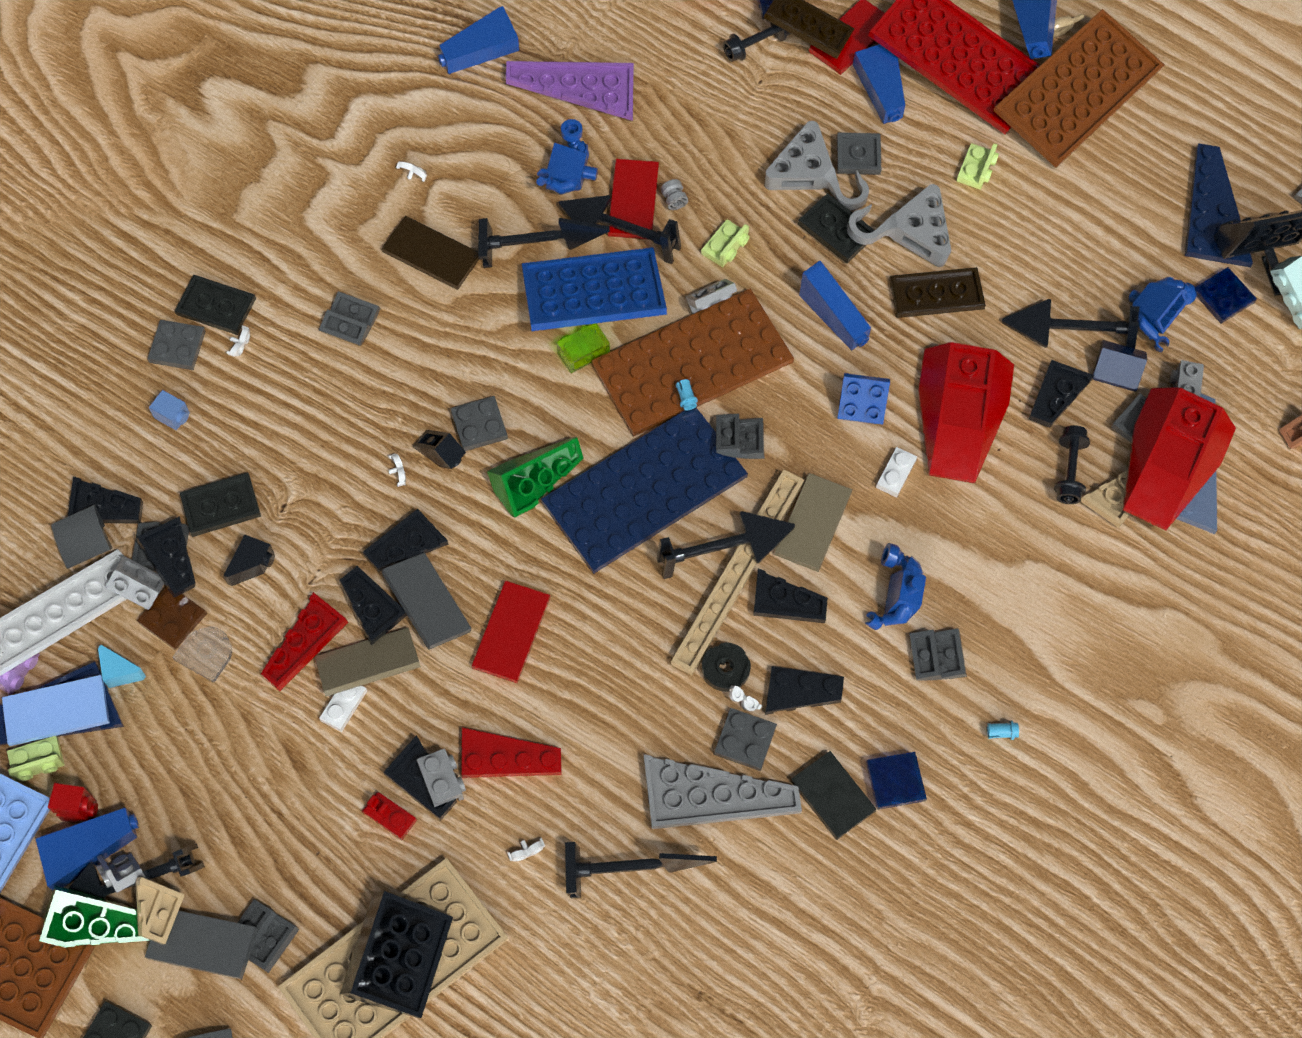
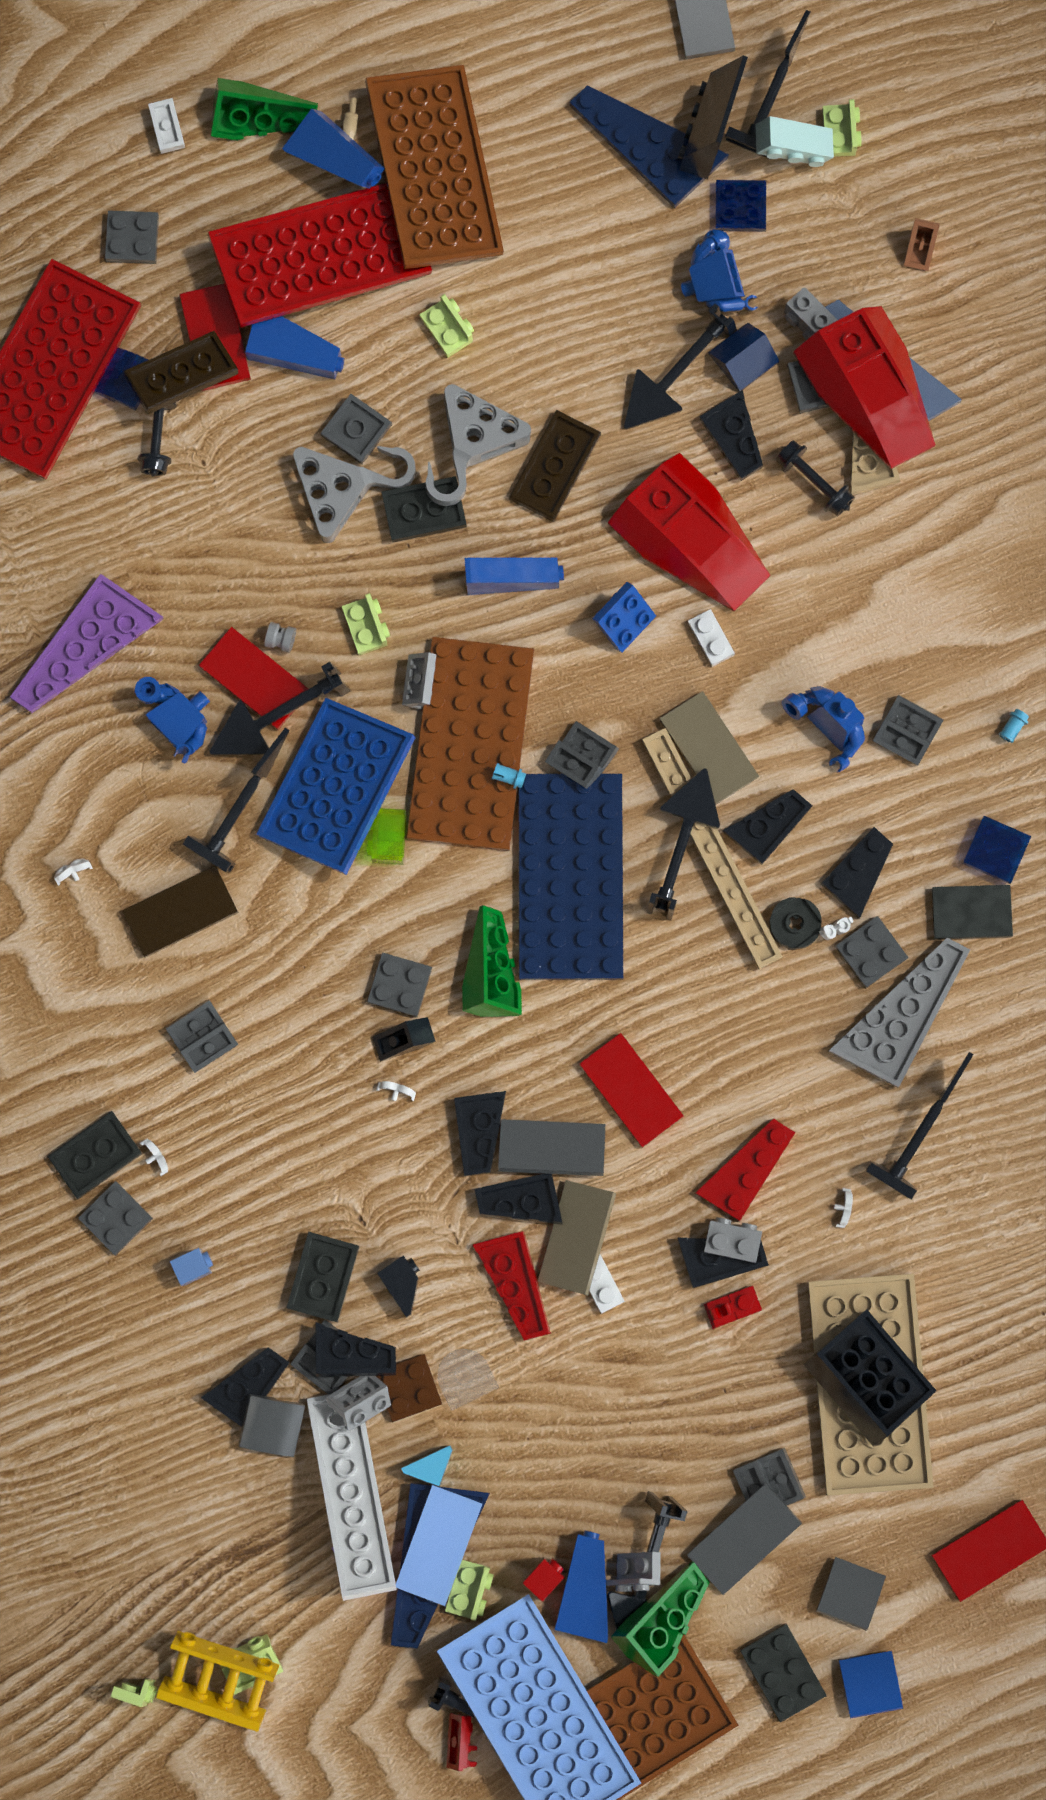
camera: 50 degrees left, 15 degrees up
(156, 909) = (693, 1560): tan wing -> none

